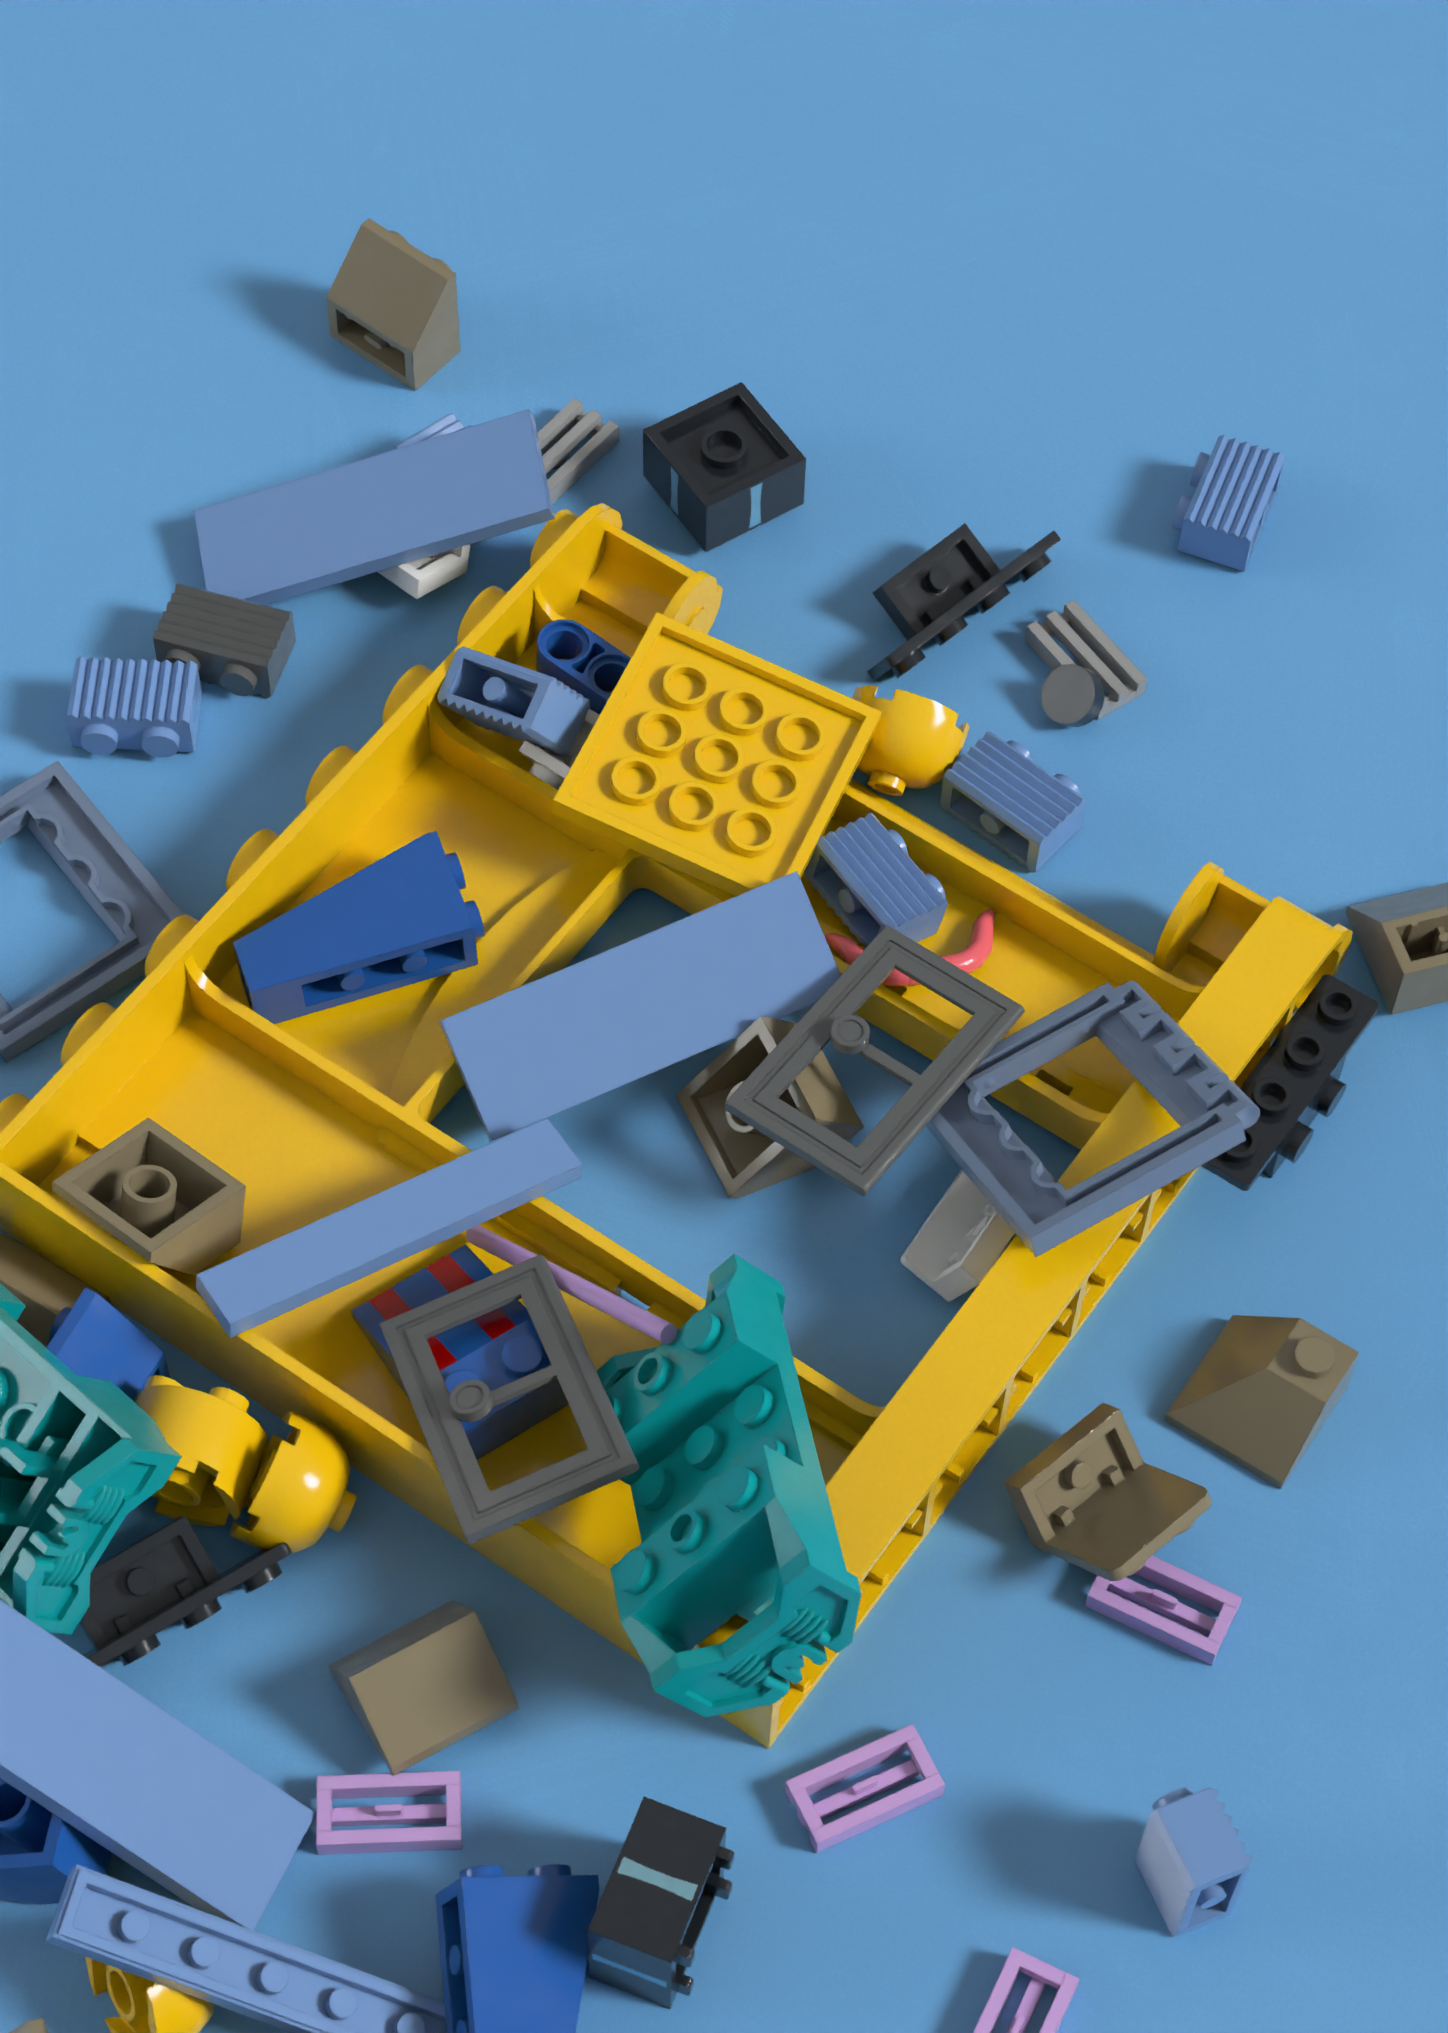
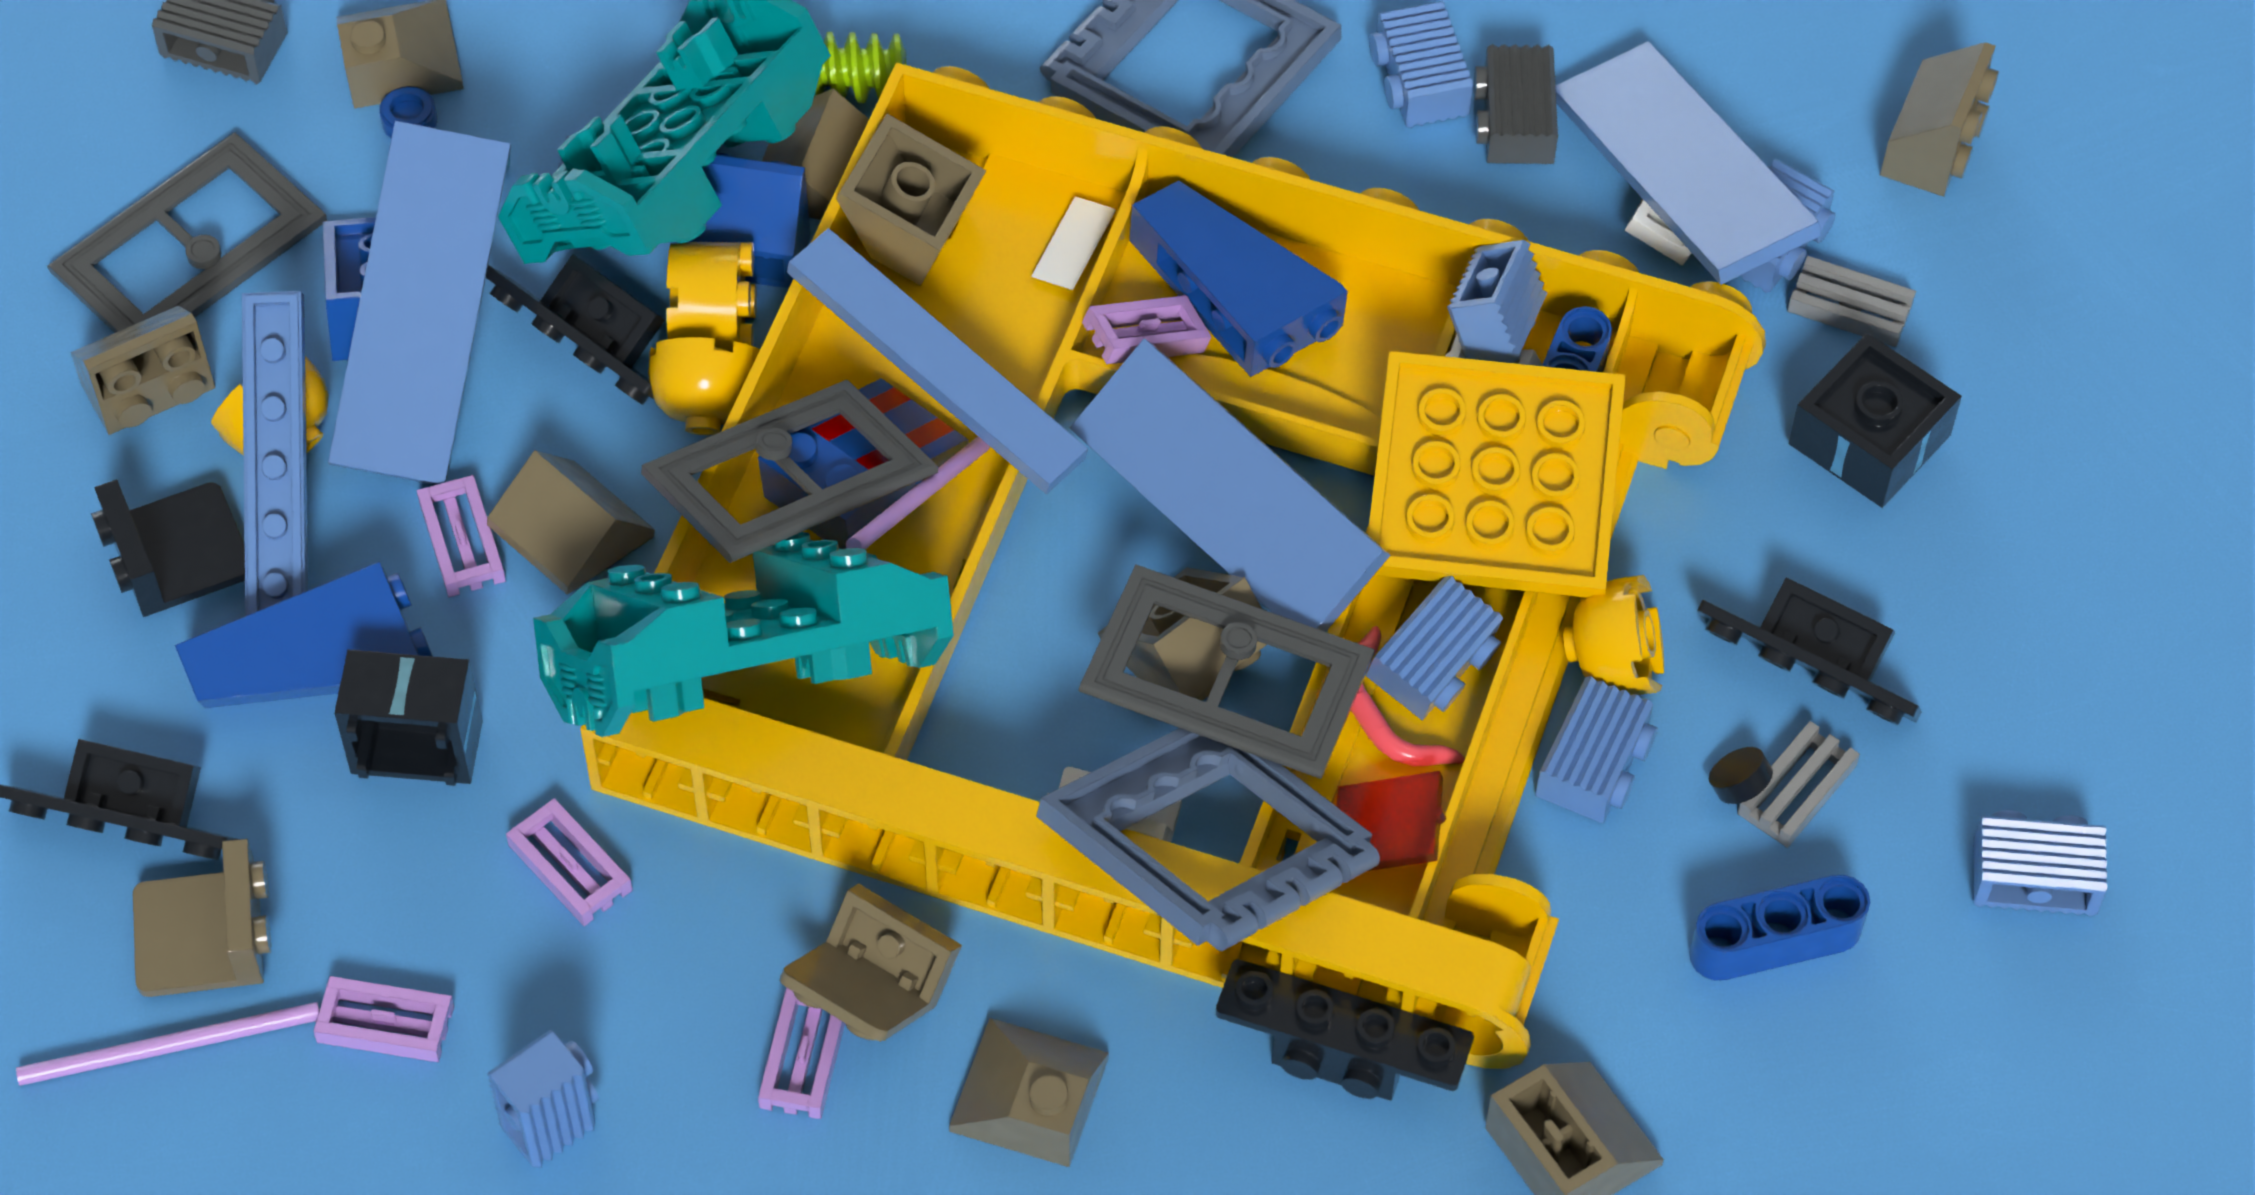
camera: 75 degrees right, 0 degrees up
(239, 1081) = (1073, 243): none -> white sticker
(402, 1060) = (1170, 338): none -> lavender tile
(1059, 967) = (1400, 815): none -> clear red piece
(1246, 715) = (1798, 907): none -> blue beam

